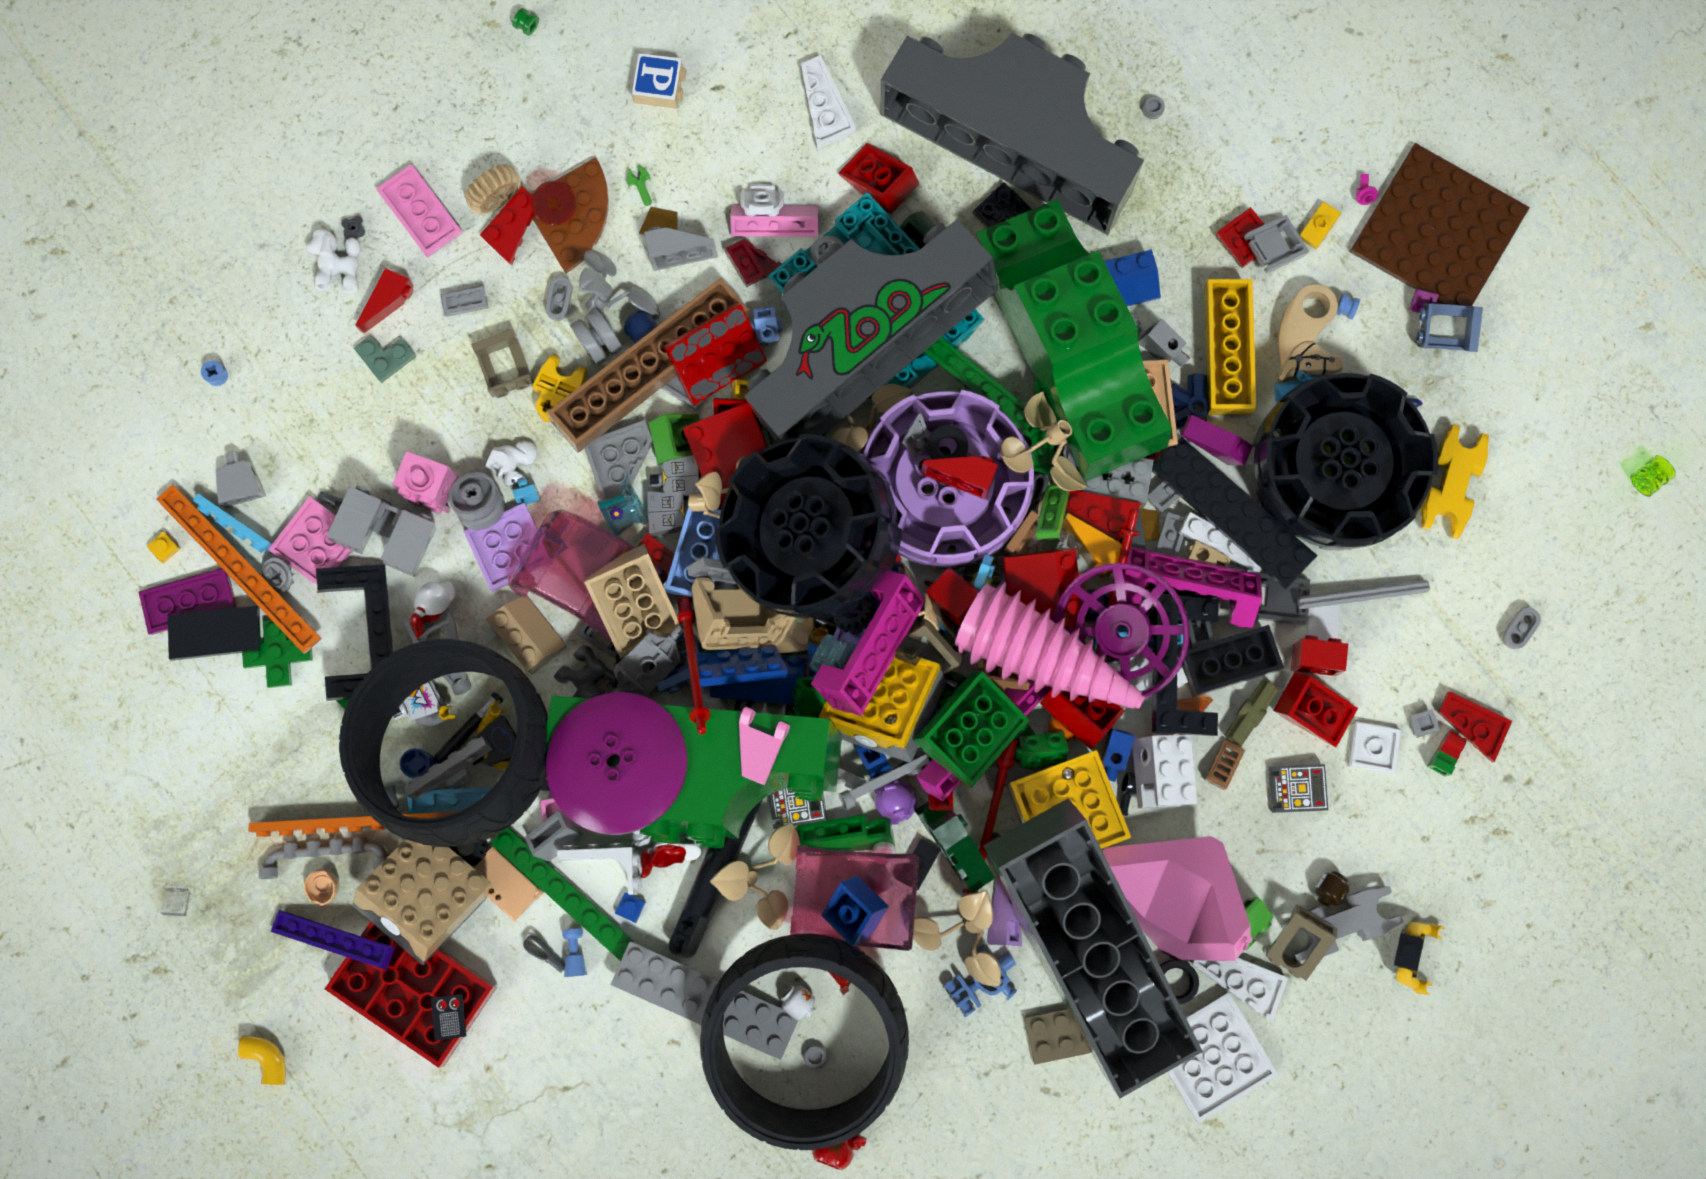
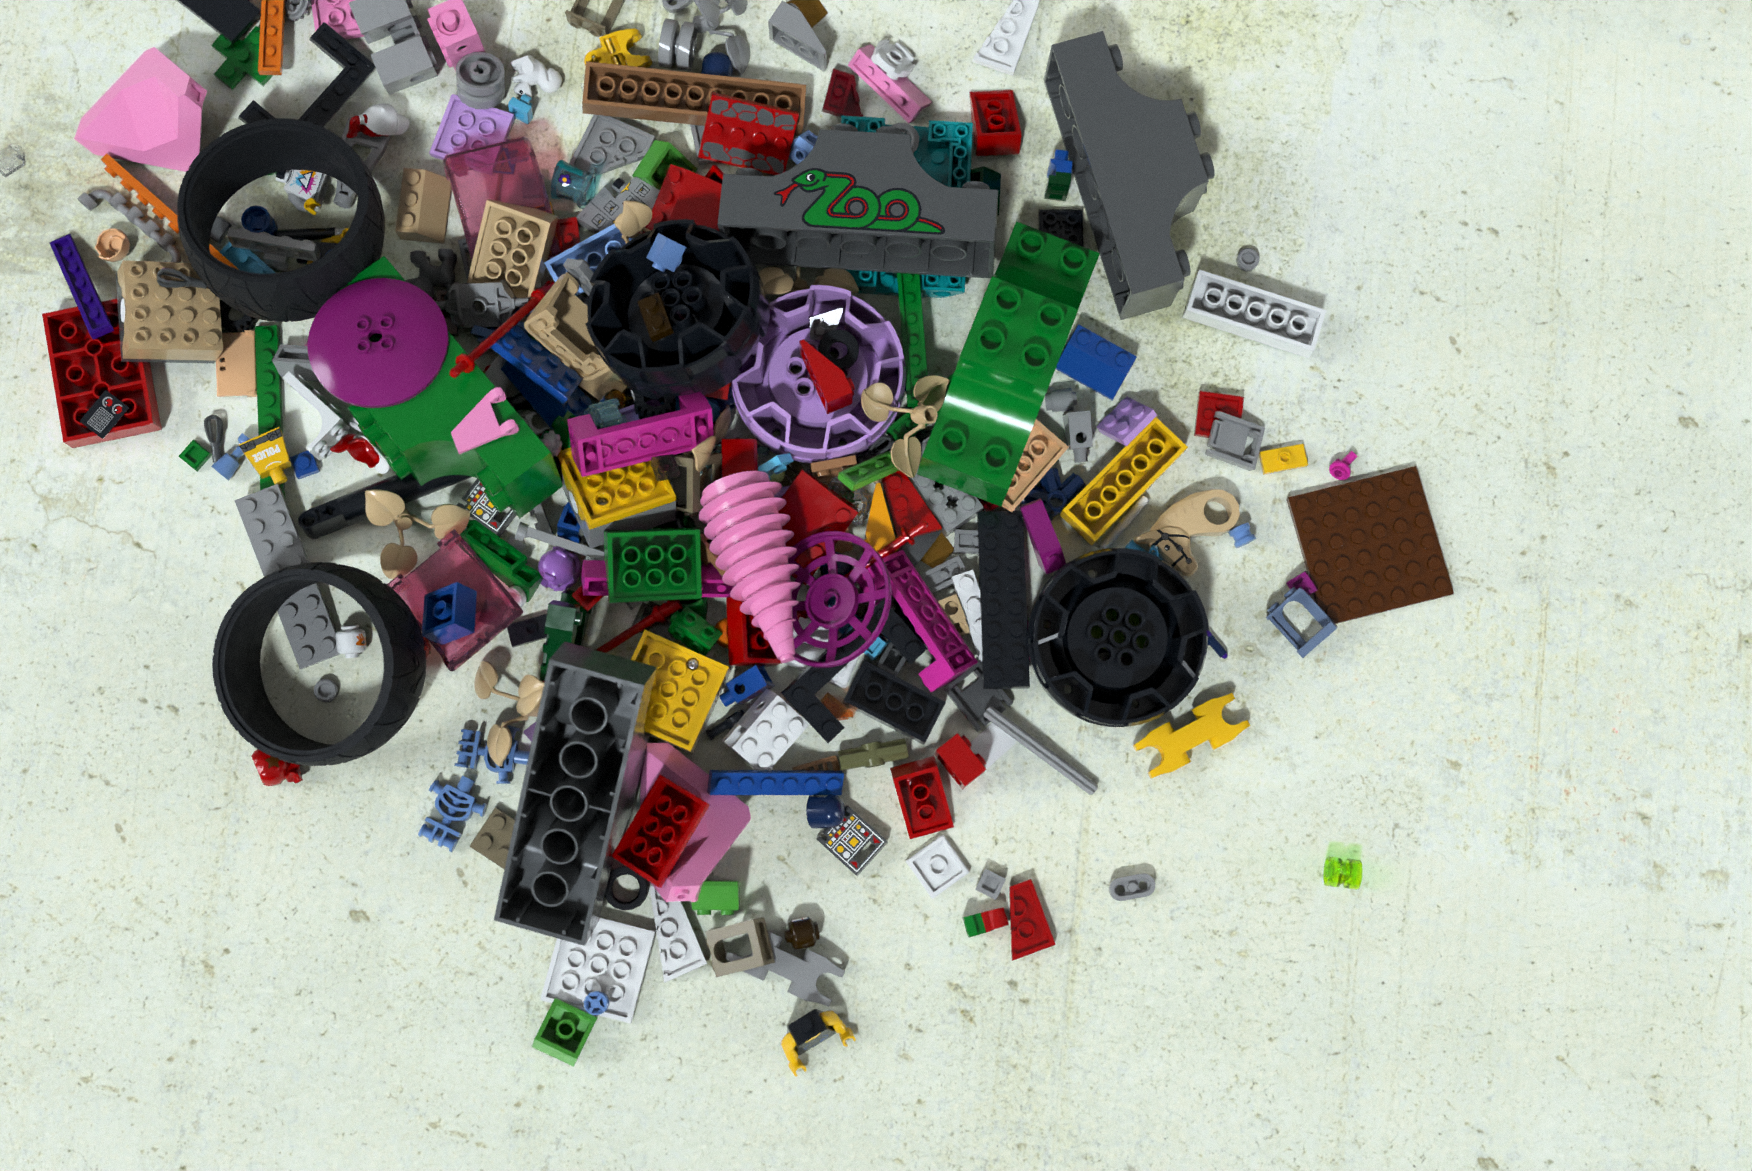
camera: 35 degrees right, 0 degrees up
(254, 762) = (147, 116): none -> bright pink panel
(418, 856) = (188, 280): none -> dark grey piece
(542, 981) = (195, 455): none -> green tile
(601, 927) = (268, 455): none -> yellow torso
(762, 493) = (665, 253): none -> medium blue brick
(805, 546) = (655, 317): none -> dark brown plate
(811, 710) = (552, 442): none -> white plant
(967, 171) = (1058, 176): none -> hips
(988, 1031) = (462, 791): none -> medium blue piece
(1177, 914) = (660, 830): none -> red slope
(1189, 302) = (1126, 421): none -> lavender plate
(1201, 140) = (1254, 313): none -> white brick
(1209, 800) = (775, 782): none -> blue plate
(1239, 1128) = (564, 1032): none -> bright green slope
(1247, 1084) = (590, 1003): none -> medium blue wheel
(1259, 391) = (1125, 521): none -> white bar
(1262, 786) = (825, 811): none -> dark blue helmet

